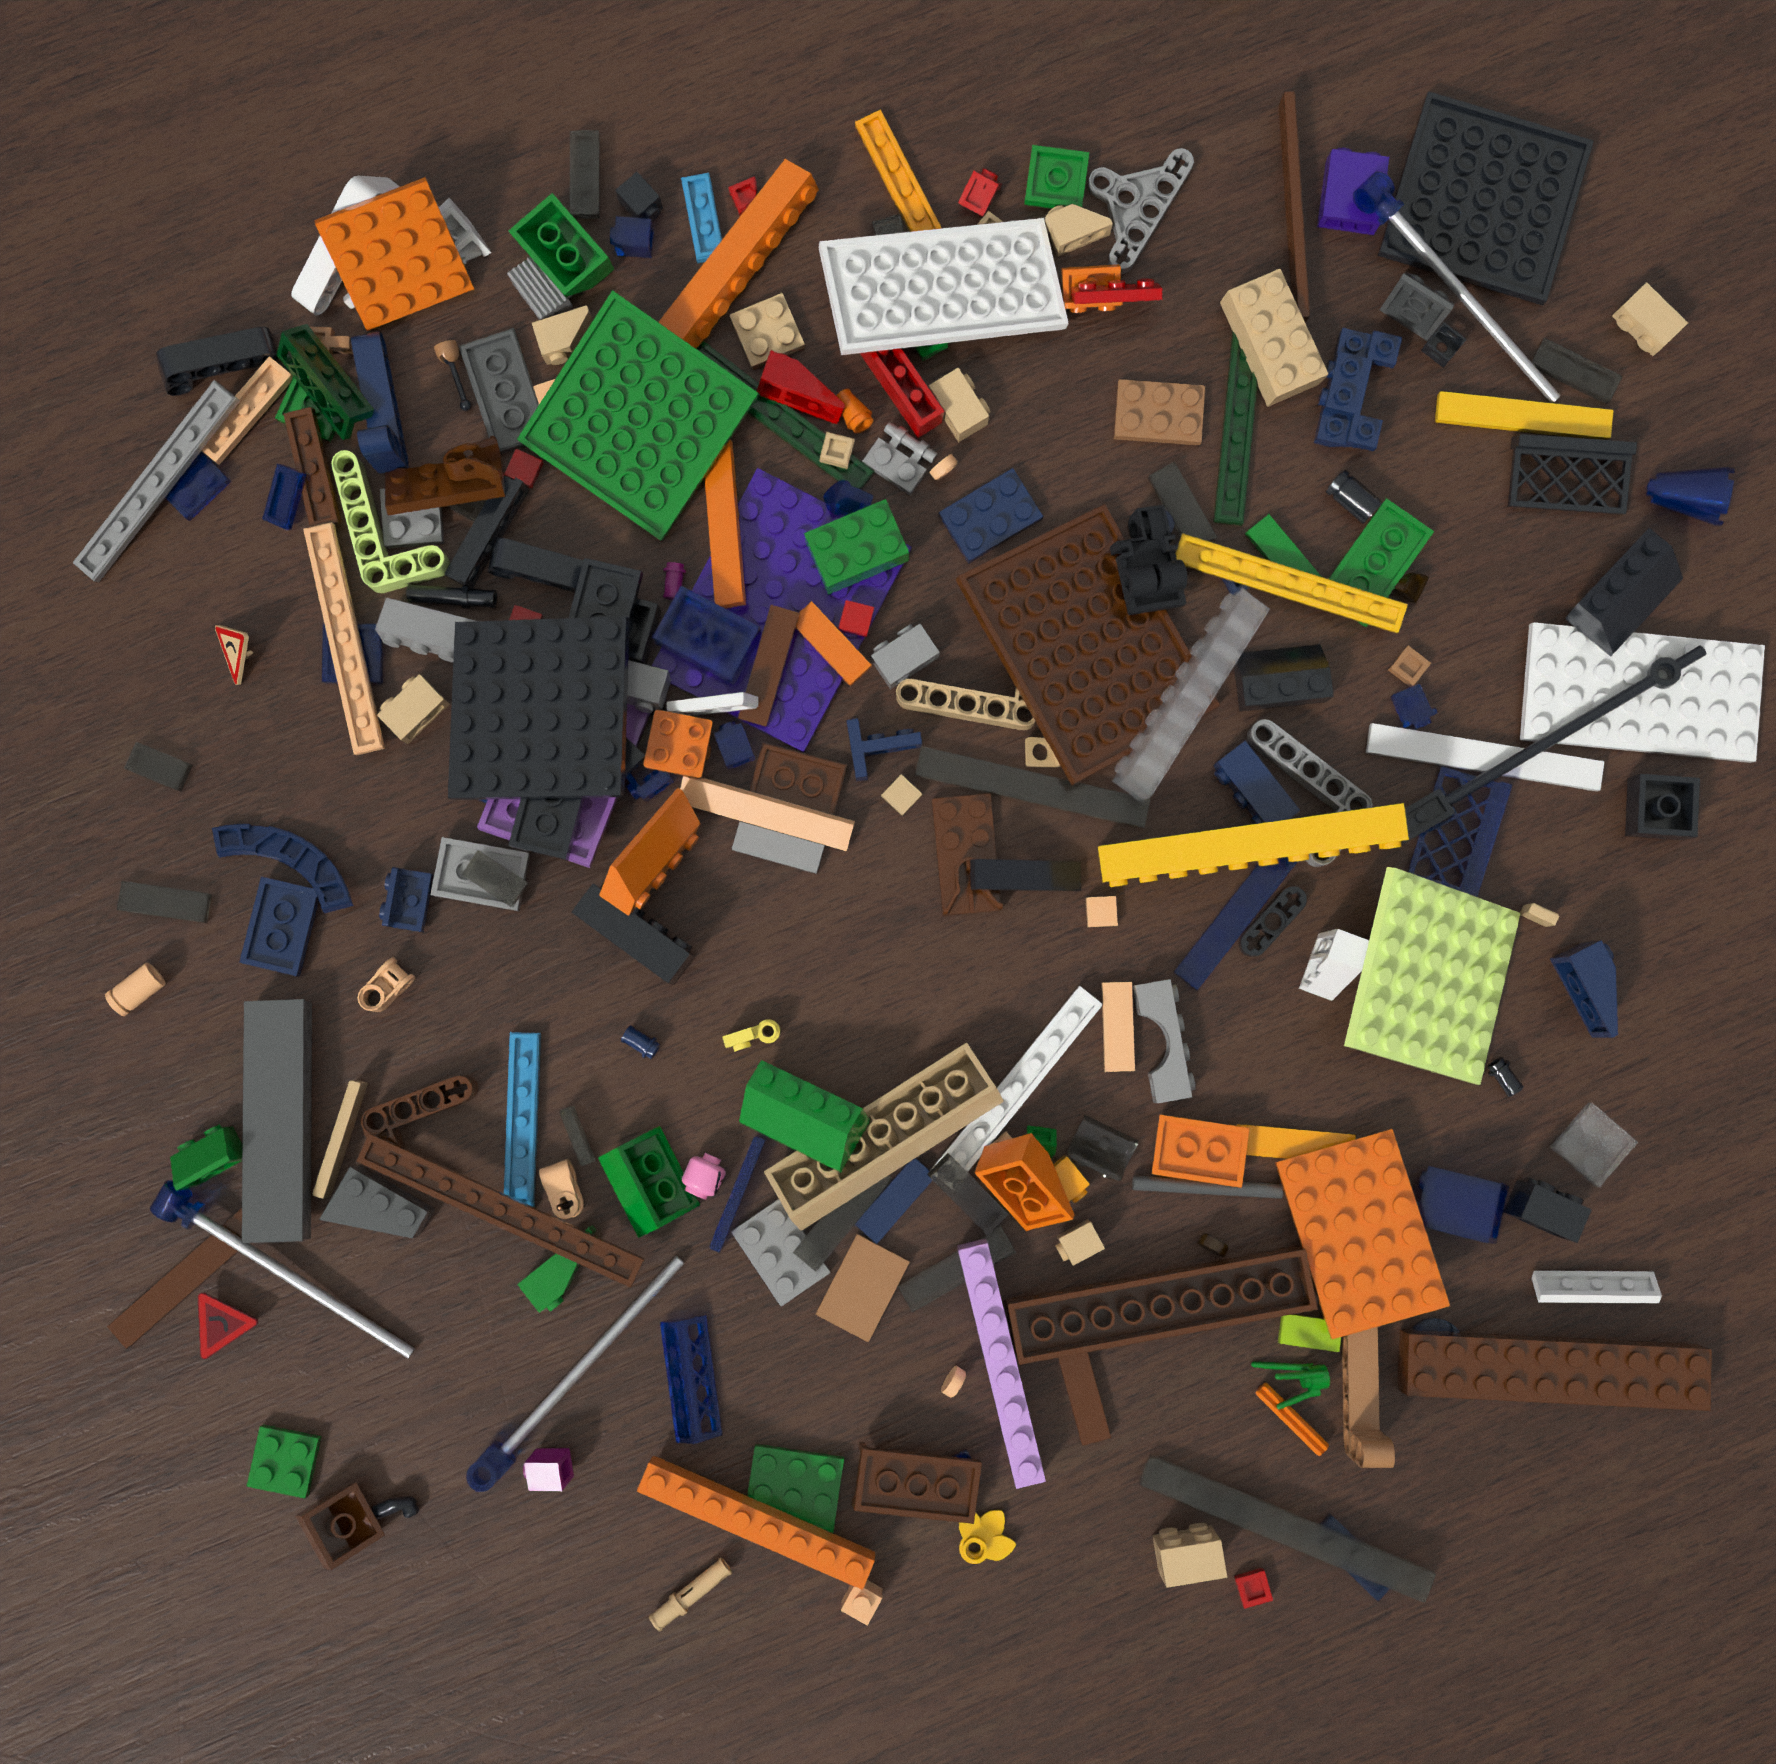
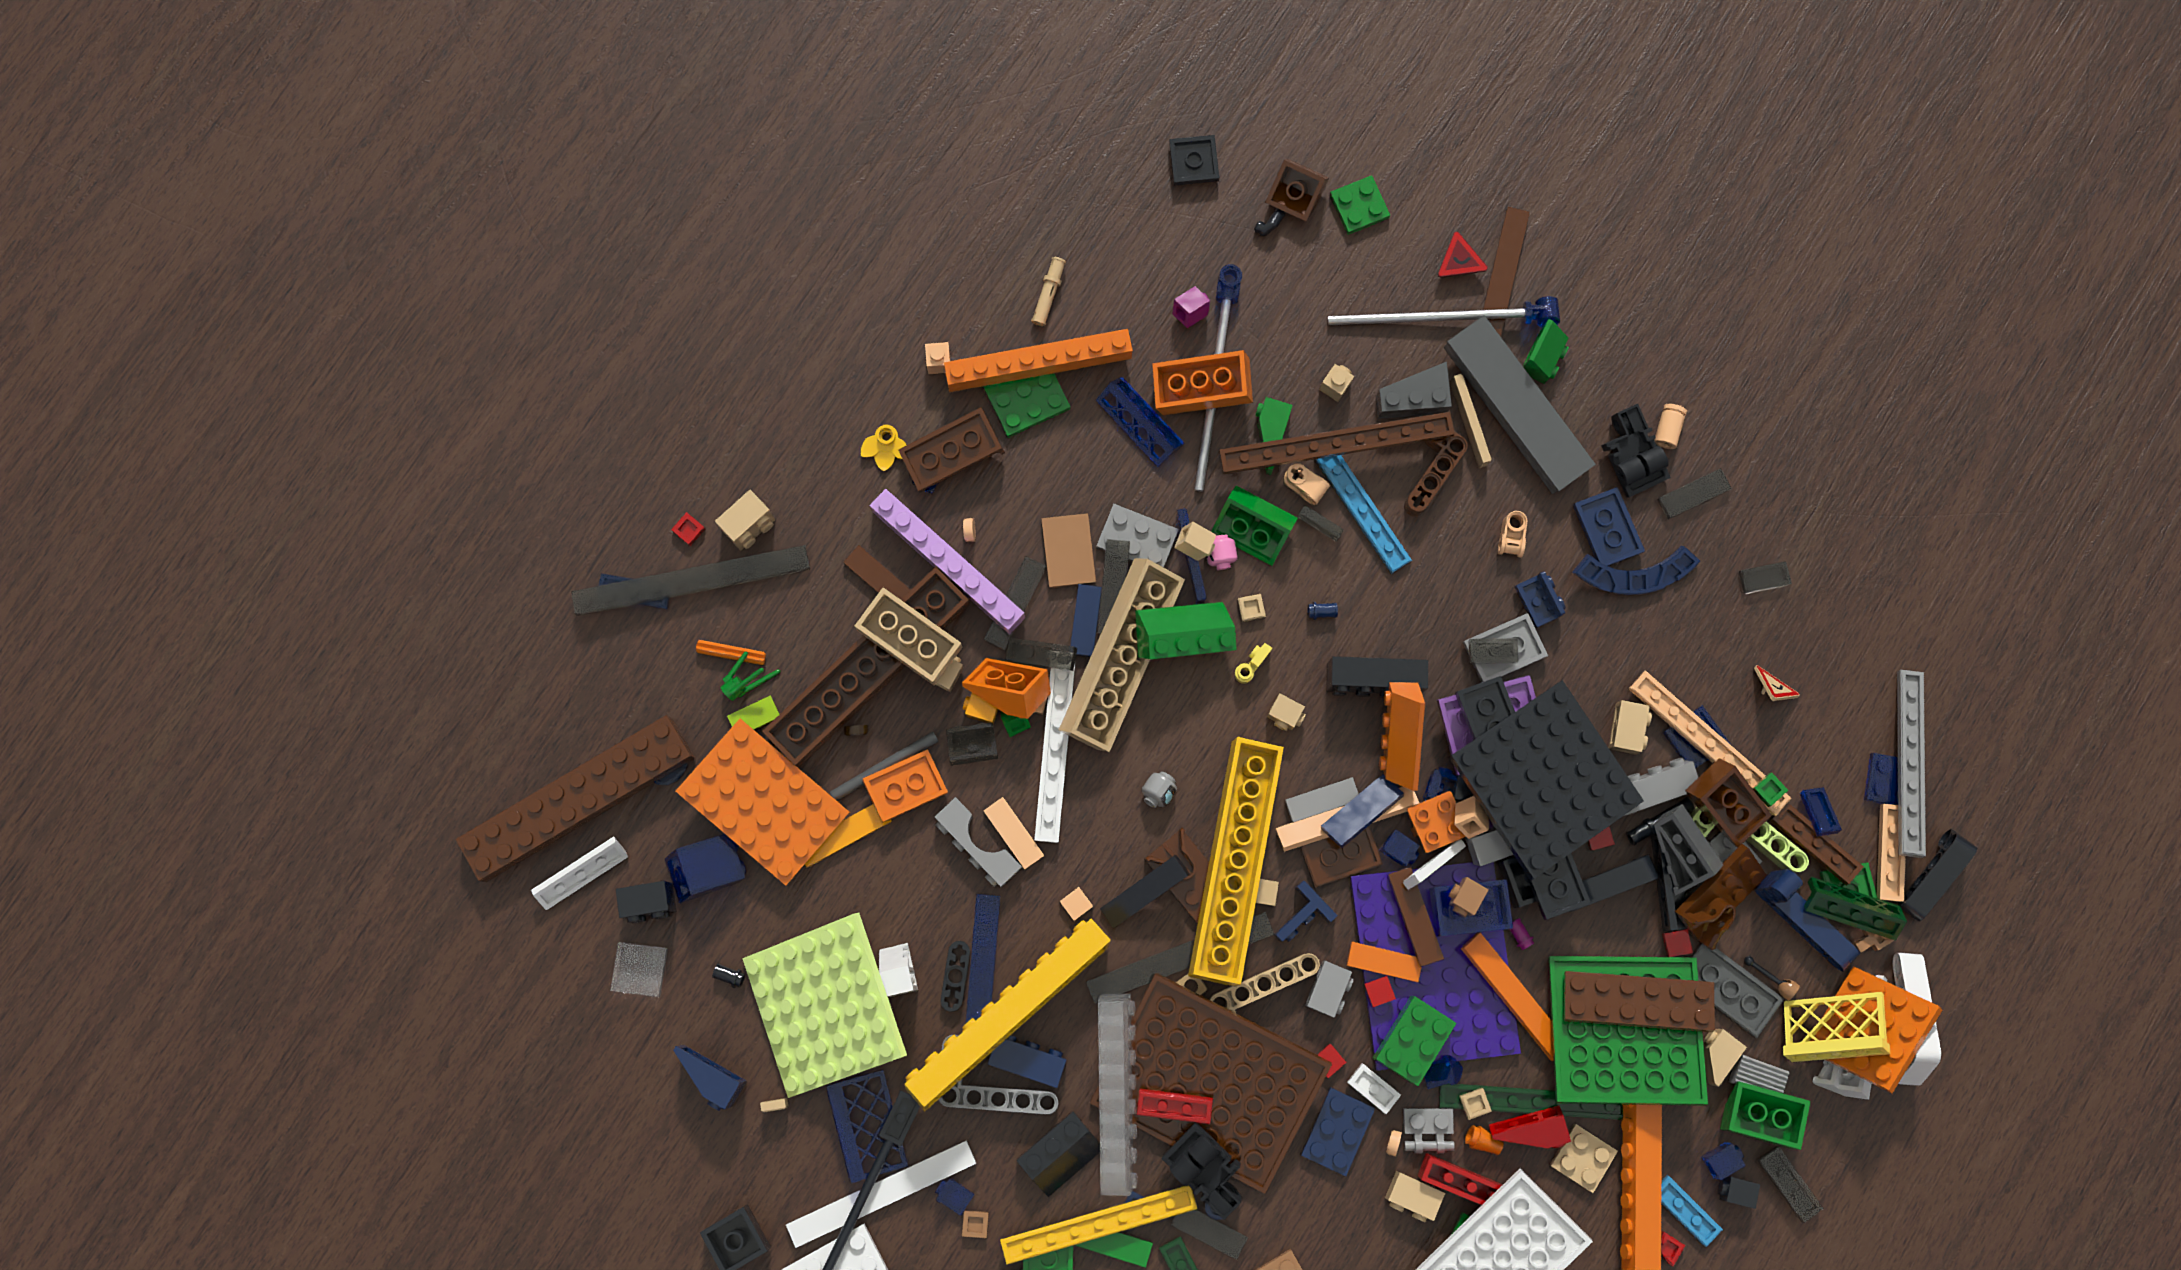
camera: 140 degrees right, 5 degrees down
(195, 979) = (1635, 454): none -> black plate
(319, 548) = (1770, 789): none -> green tile
(369, 564) = (1728, 801): none -> reddish brown slope
(427, 1638) = (1194, 160): none -> black plate
(443, 258) = (1835, 1048): none -> light yellow fence
(448, 546) = (1686, 849): none -> dark grey wedge
(451, 1277) = (1337, 382): none -> tan brick
(596, 1375) = (1202, 382): none -> orange brick
(606, 434) = (1639, 1001): none -> reddish brown plate
(644, 723) = (1471, 817): none -> light nougat brick
(706, 644) = (1467, 897): none -> medium nougat brick
(712, 1095) = (1251, 608): none -> tan tile
(725, 1204) = (1195, 541): none -> tan brick
(747, 807) = (1362, 811): none -> piece
(753, 960) = (1286, 713): none -> tan brick
(912, 842) = (1236, 862): none -> yellow brick
(927, 531) = (1373, 1088): none -> white plate
(939, 969) = (1159, 789): none -> light grey head
(948, 589) = (1330, 1054): none -> red tile
(1101, 1306) = (908, 636): none -> tan brick
(1139, 643) = (1174, 1106): none -> red tile
(1361, 1422) = (693, 694): medium nougat beam -> none

